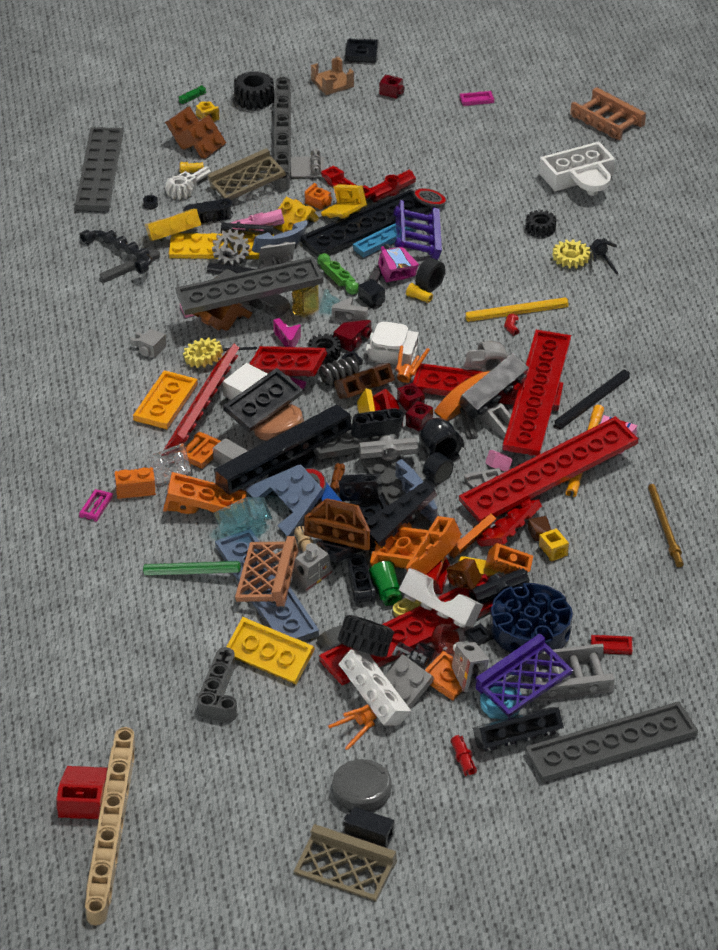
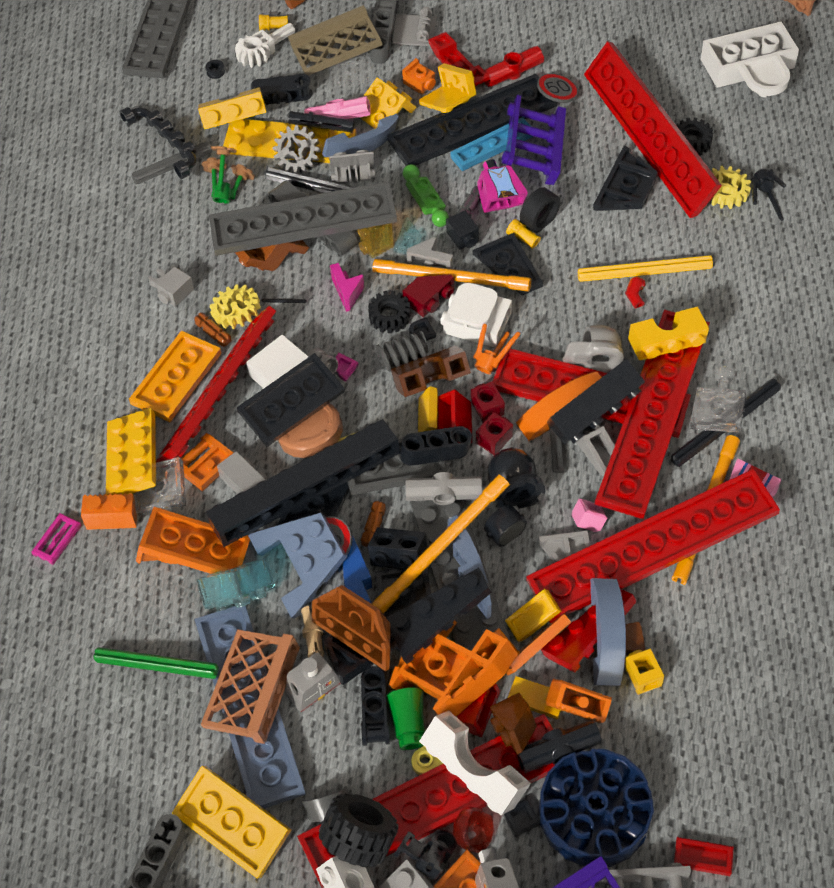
camera: 10 degrees right, 15 degrees up
(143, 445) = (131, 453): none -> yellow plate
(166, 263) = (221, 191): none -> plant
(187, 369) = (212, 329): none -> dark orange axle
(289, 360) = (337, 331): red plate -> none
(320, 321) = (510, 282): none -> light orange piece
(412, 312) = (508, 258): none -> black wing
(424, 441) = (488, 495): none -> light orange piece
(470, 516) = (533, 615): none -> yellow tile
(494, 257) = (626, 184): none -> black wing
(508, 219) = (652, 130): none -> red plate
(526, 520) = (611, 632): none -> sand blue slope
(529, 346) = (650, 340): none -> yellow arch
(586, 388) = (710, 398): none -> clear plate
(674, 549) = (809, 693): pearl gold bar -> none

